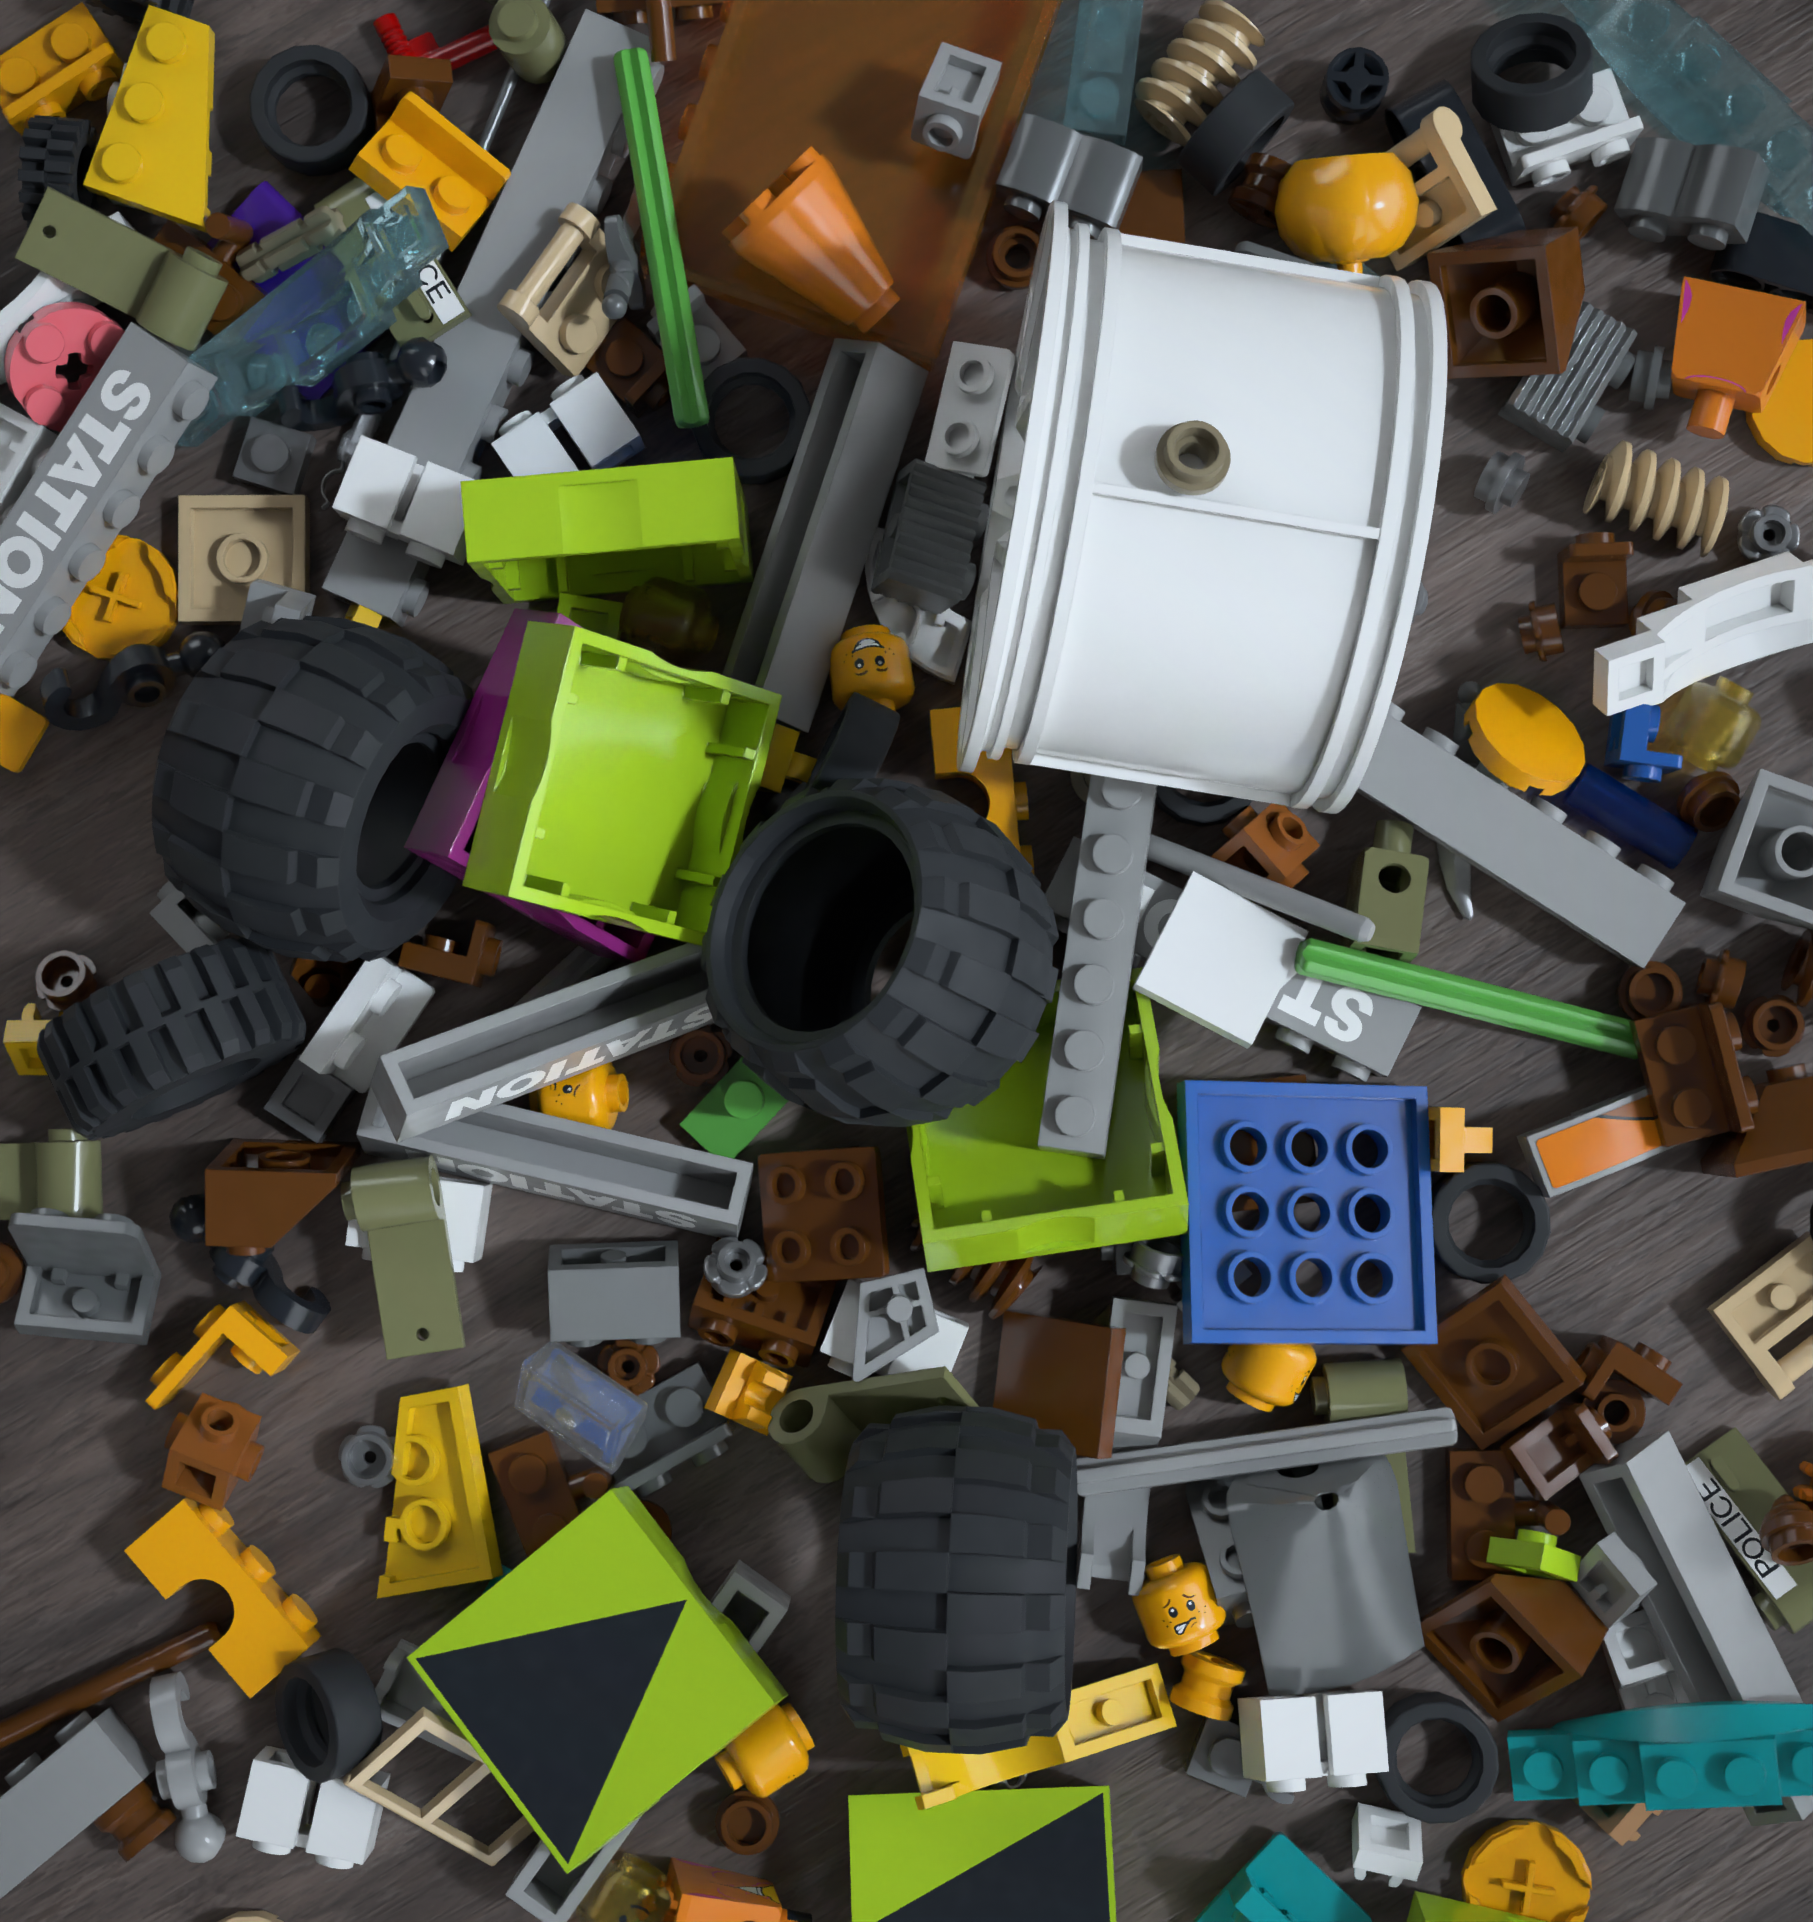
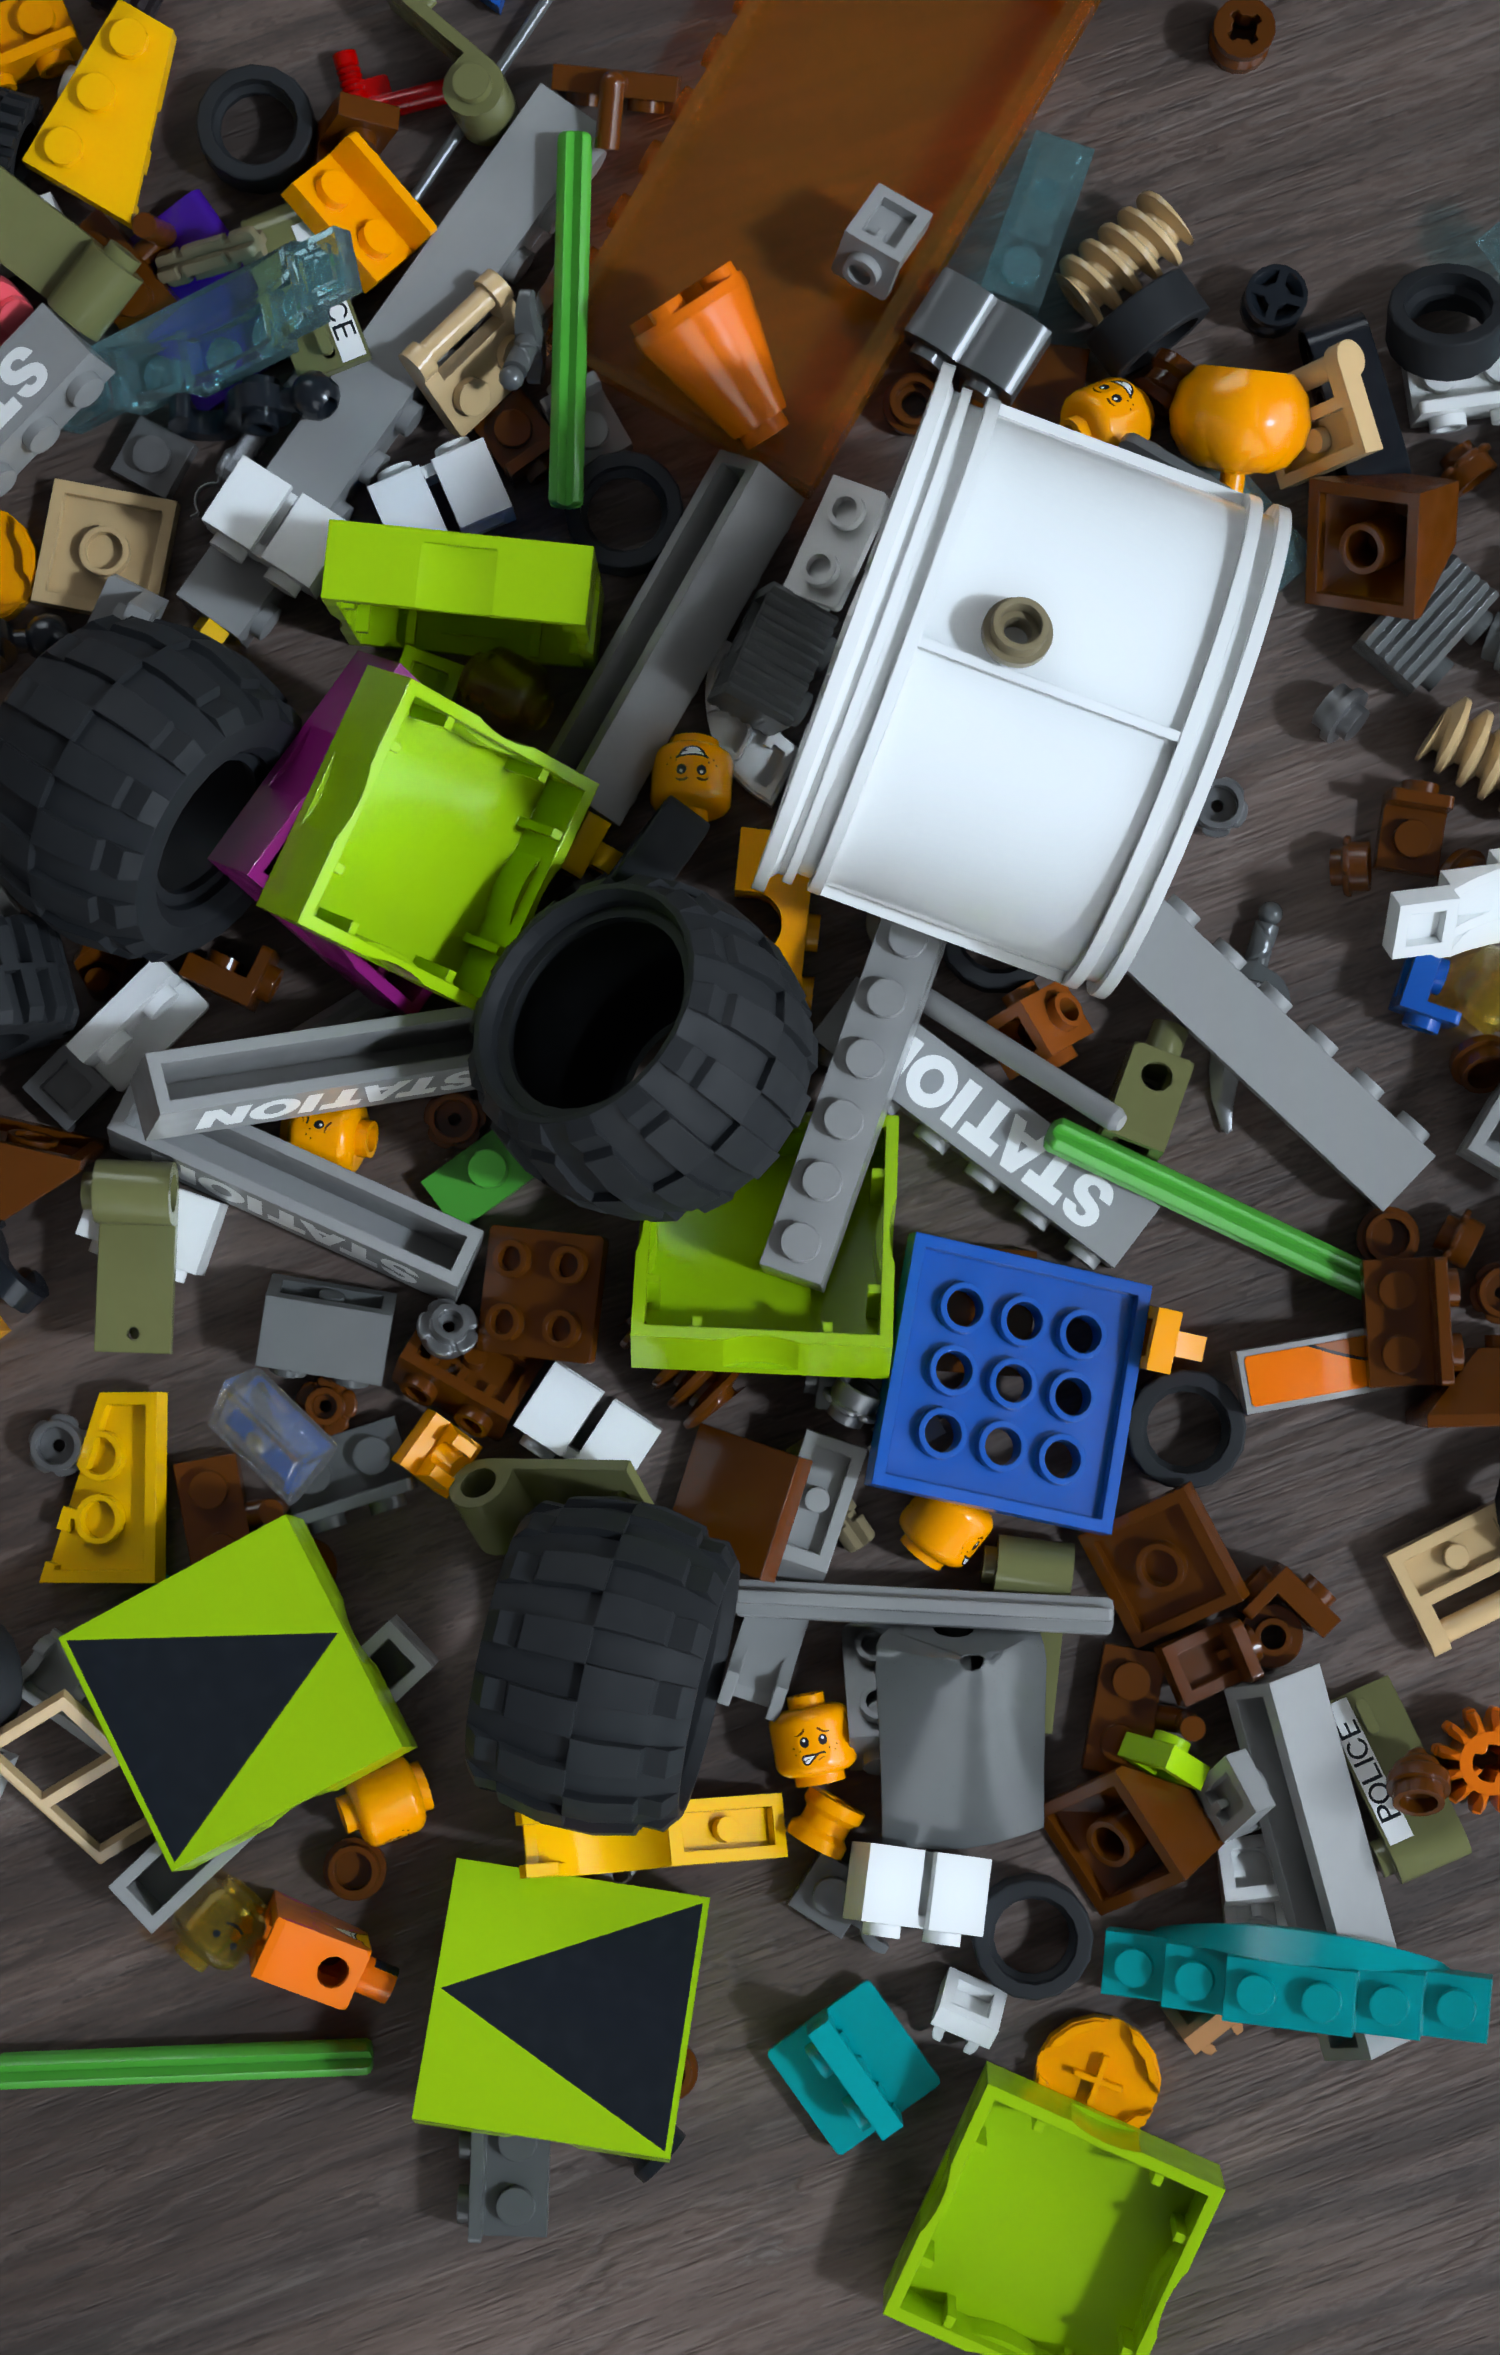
camera: 10 degrees right, 0 degrees up
(892, 1319) = (588, 1407): light grey piece -> none
(1215, 222) = (1109, 411): none -> light orange head
(1220, 960) = (973, 1122): white tile -> none
(1524, 739) = (1312, 967): light orange tile -> none
(1630, 816) = (1401, 1063): clear blue piece -> none

